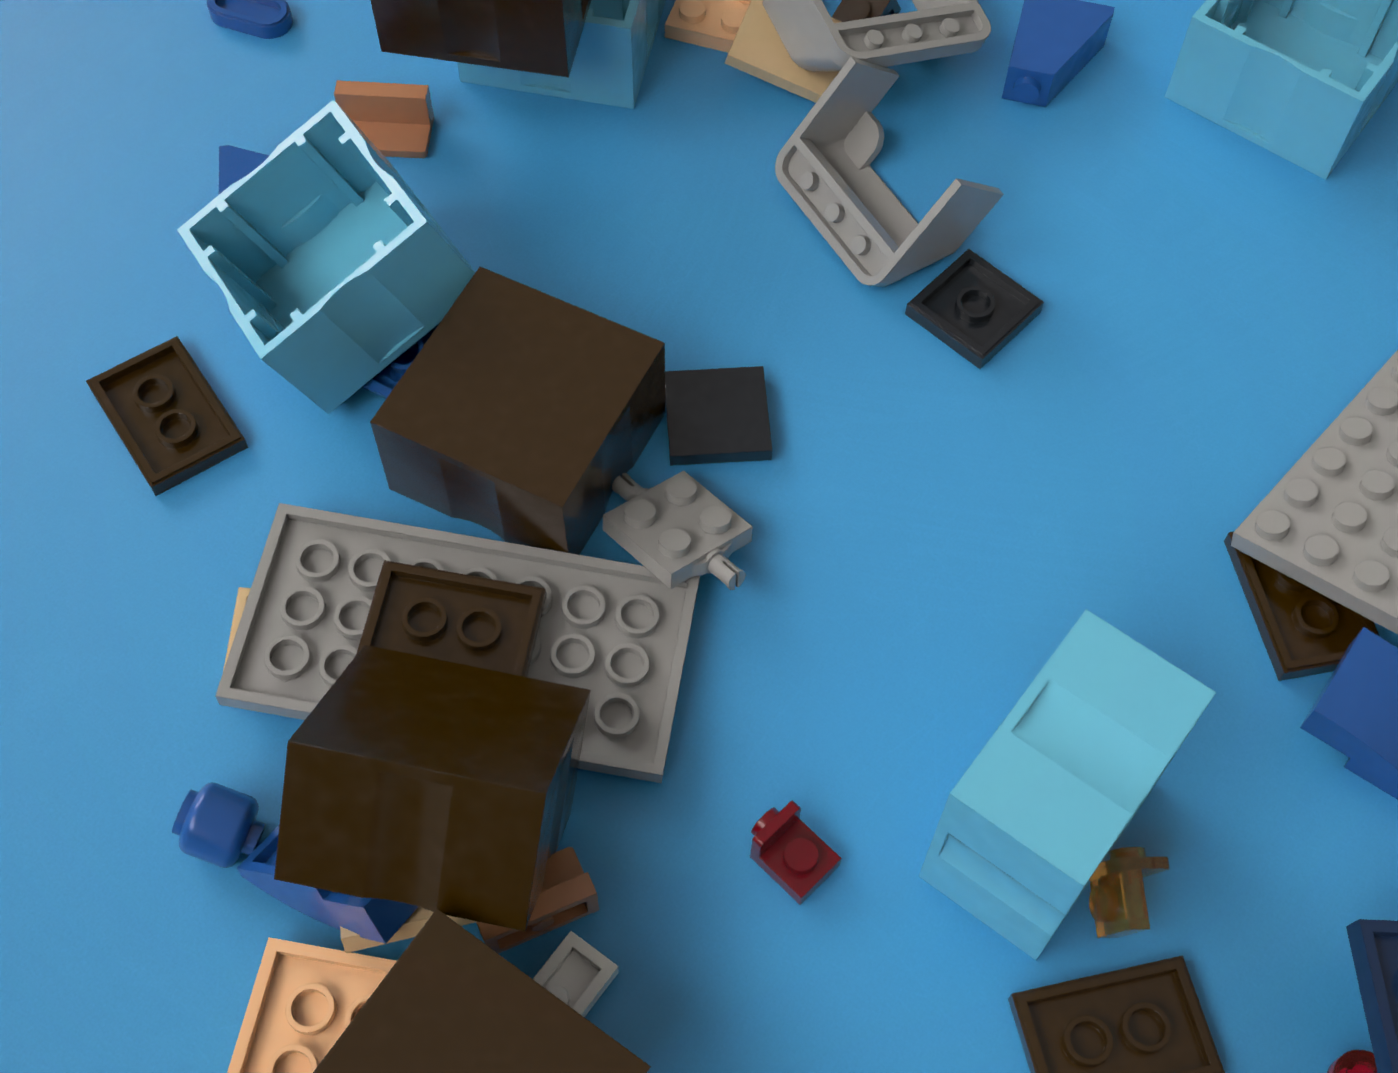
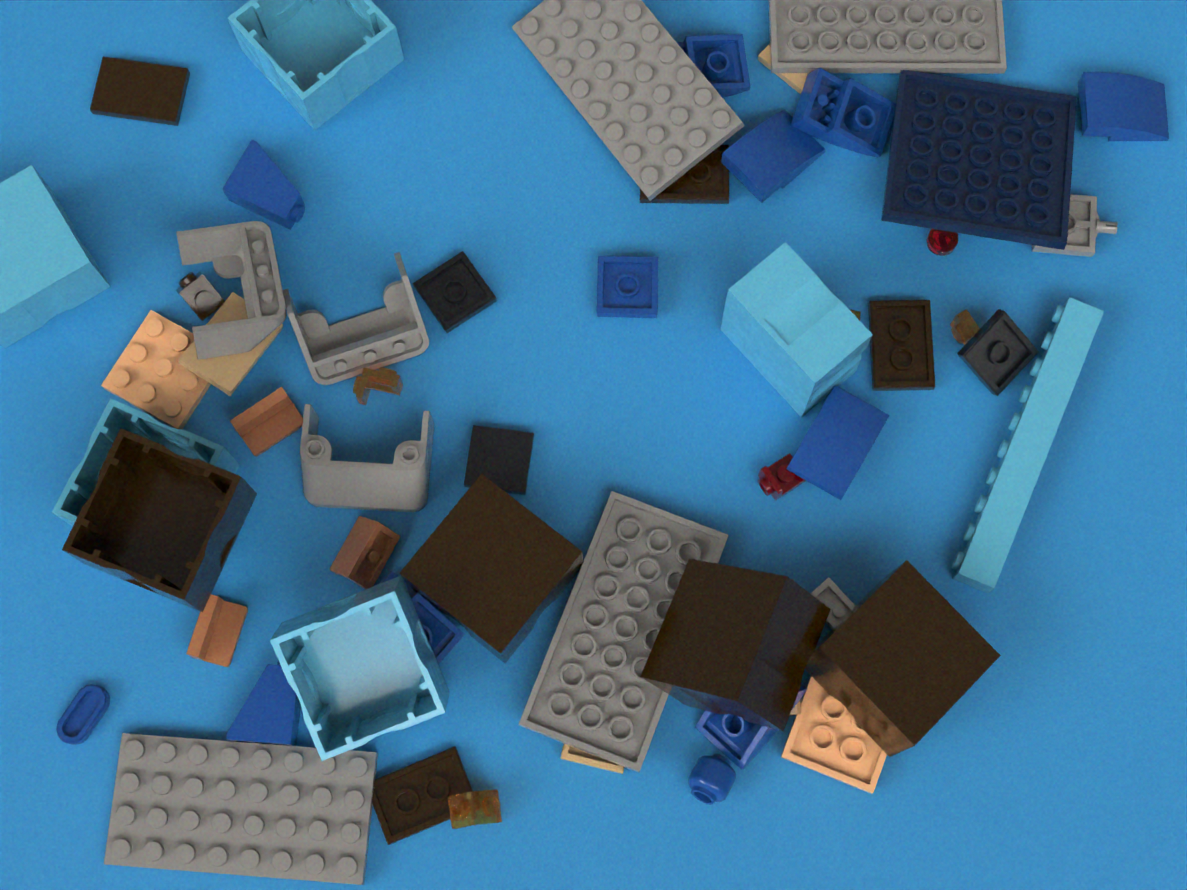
camera: 75 degrees left, 15 degrees up
(116, 173) = (241, 809): none -> light grey plate
(143, 480) = (474, 808): none -> clear orange bracket
(454, 617) = (622, 632): dark brown tile -> none
(532, 264) = (365, 552): none -> nougat panel
(654, 285) = (365, 484): none -> light grey windscreen
(678, 530) = (579, 496): light grey plate -> none
(704, 119) = (268, 422): none -> nougat panel
(792, 218) = (382, 380): none -> clear orange bracket
(882, 938) = (837, 442): none -> blue slope
(1065, 540) = (627, 286): none -> blue plate

